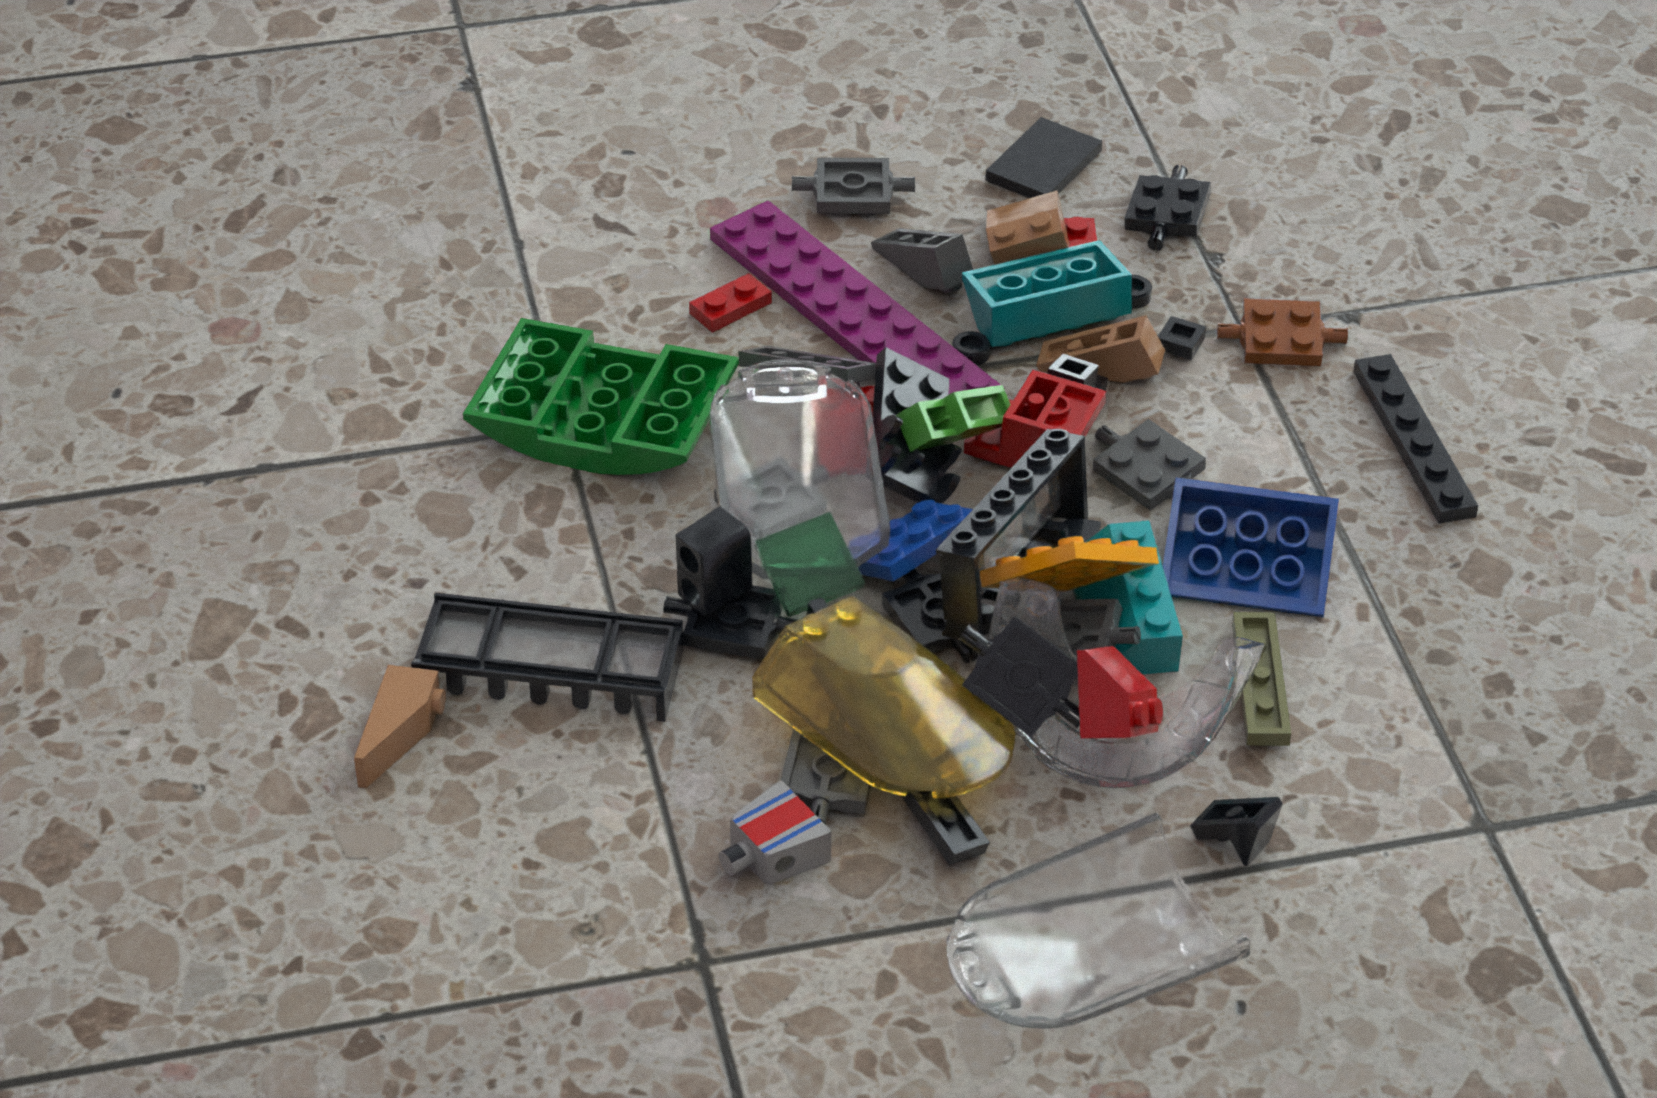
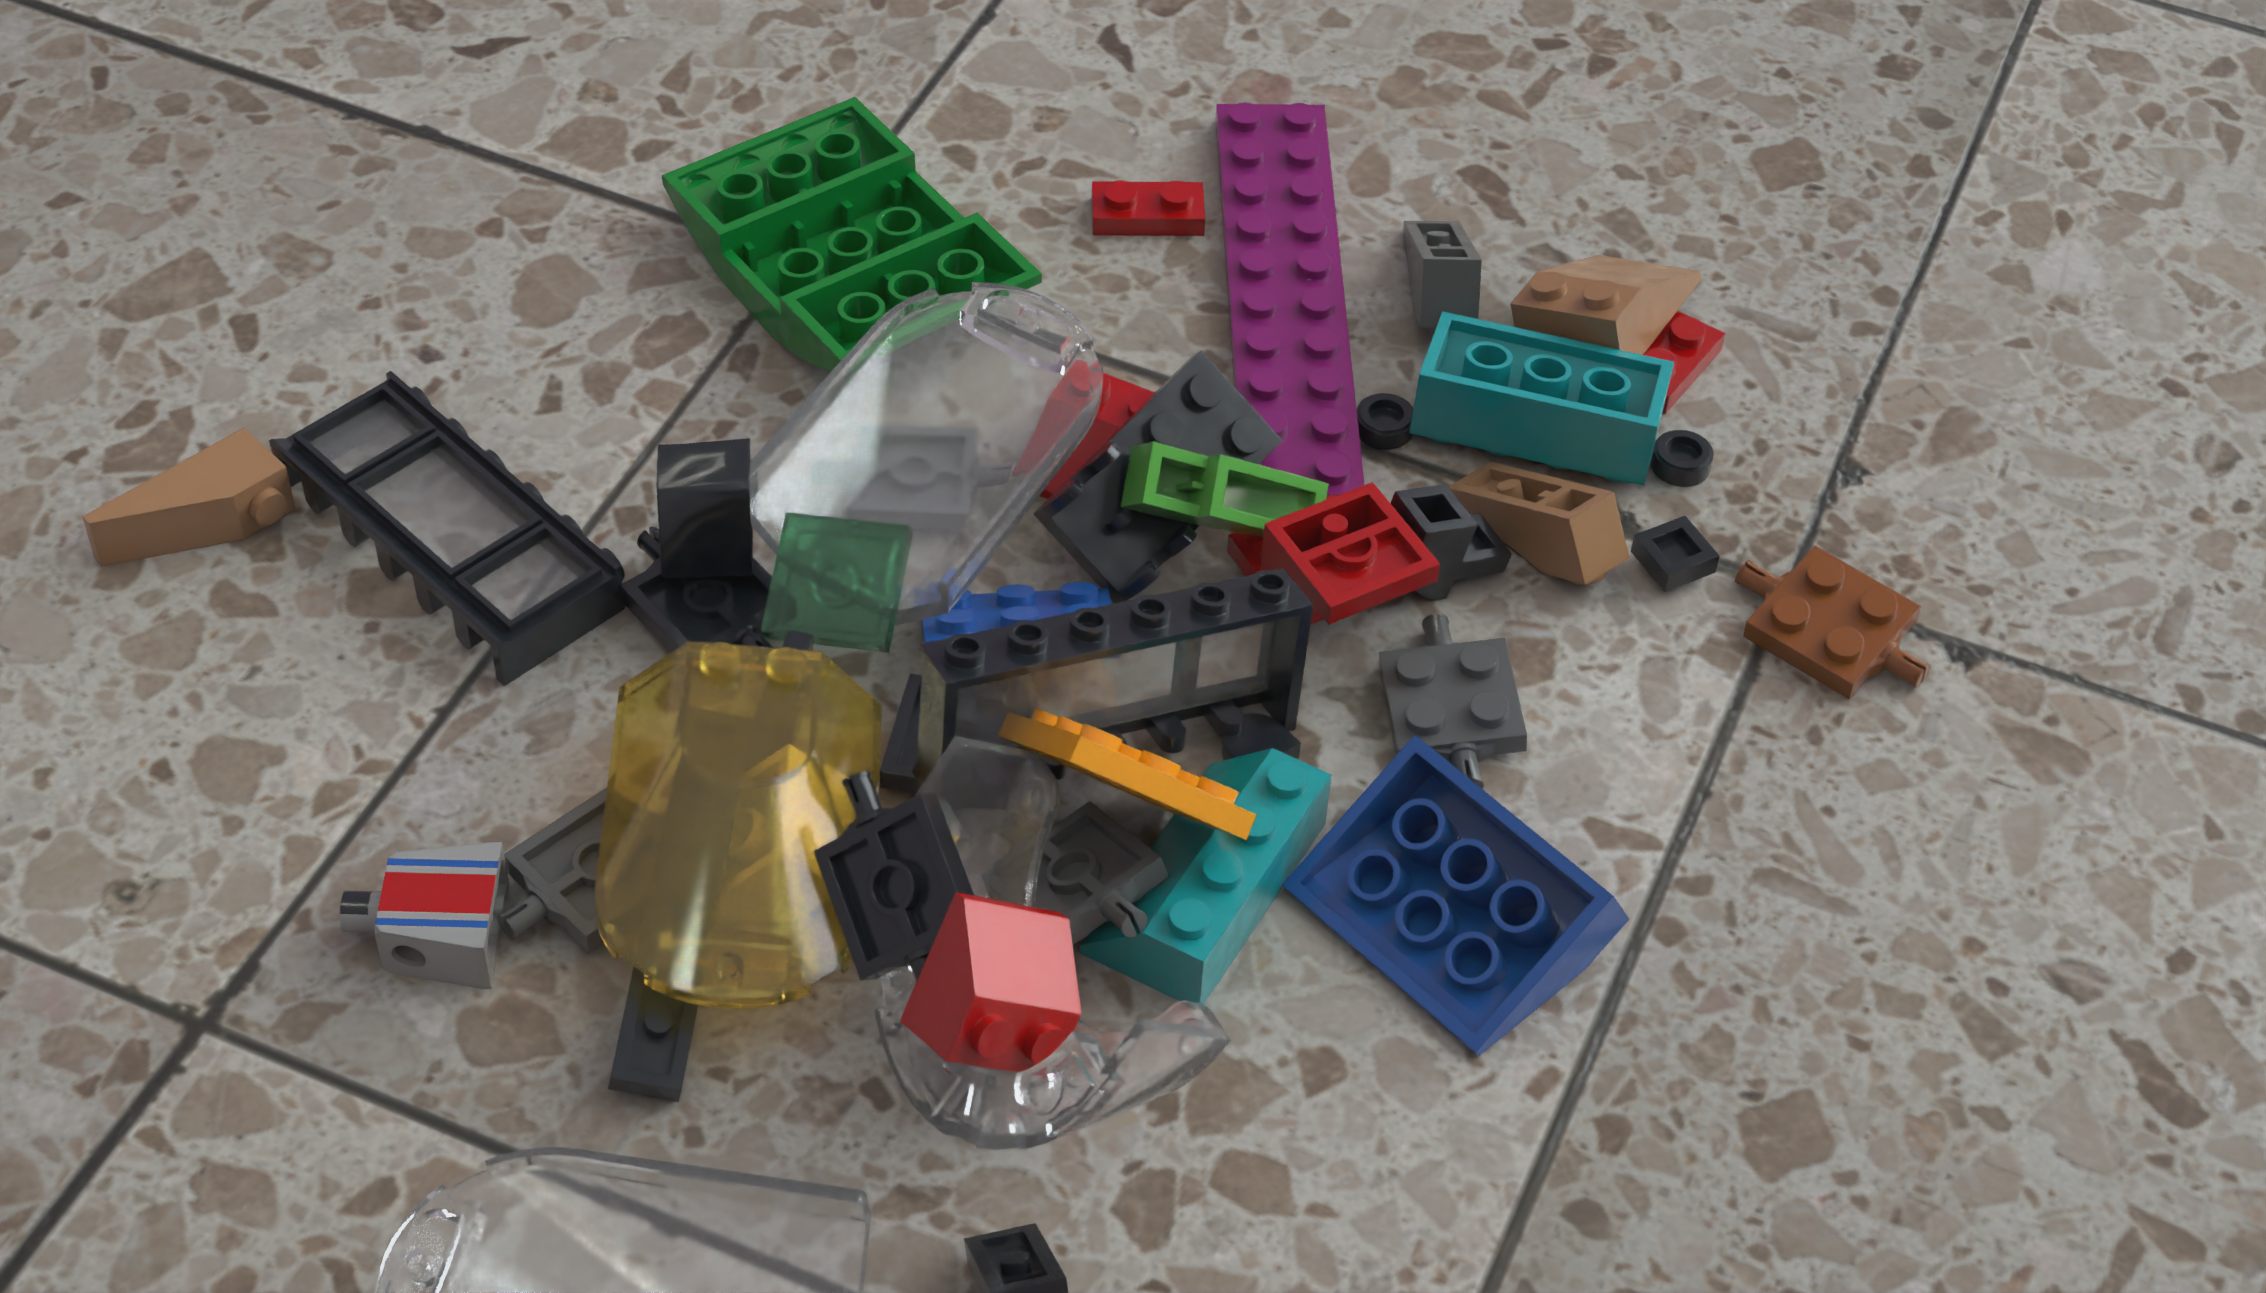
camera: 35 degrees right, 5 degrees up
(841, 367) = (1121, 330): dark grey plate -> none
(853, 185) = (1450, 138): dark grey plate -> none
(1043, 159) = (1743, 227): black tile -> none
(1167, 206) = (1848, 369): black plate -> none
(1265, 695) = (1281, 1091): olive plate -> none
(1415, 439) = (1874, 880): black plate -> none

